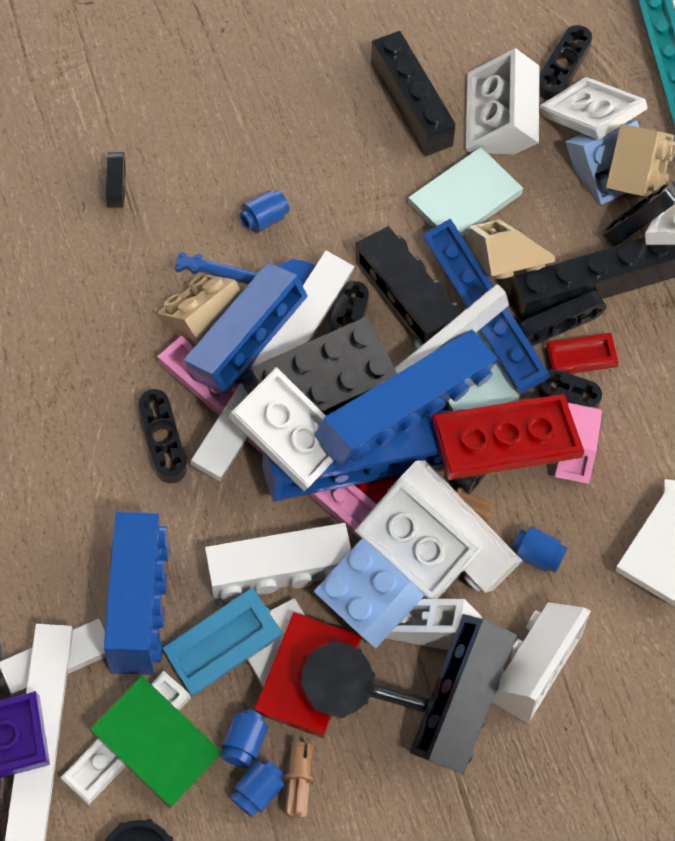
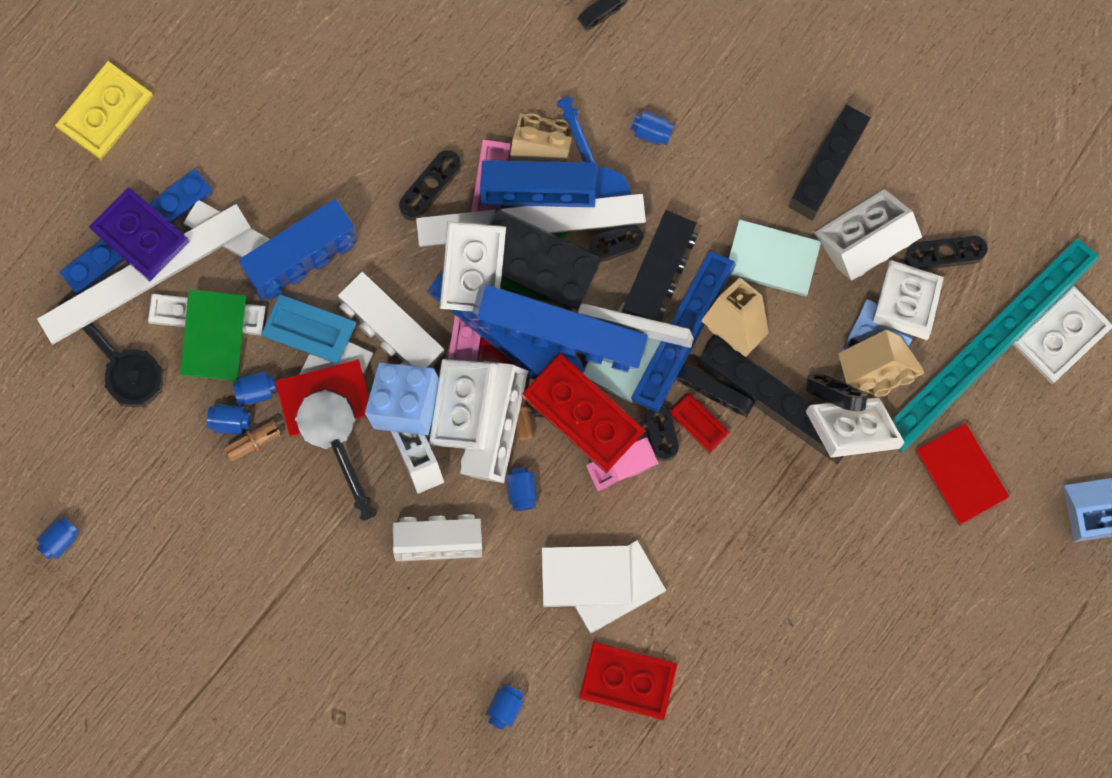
camera: 50 degrees right, 15 degrees up
(463, 693) = (373, 505): brick -> none

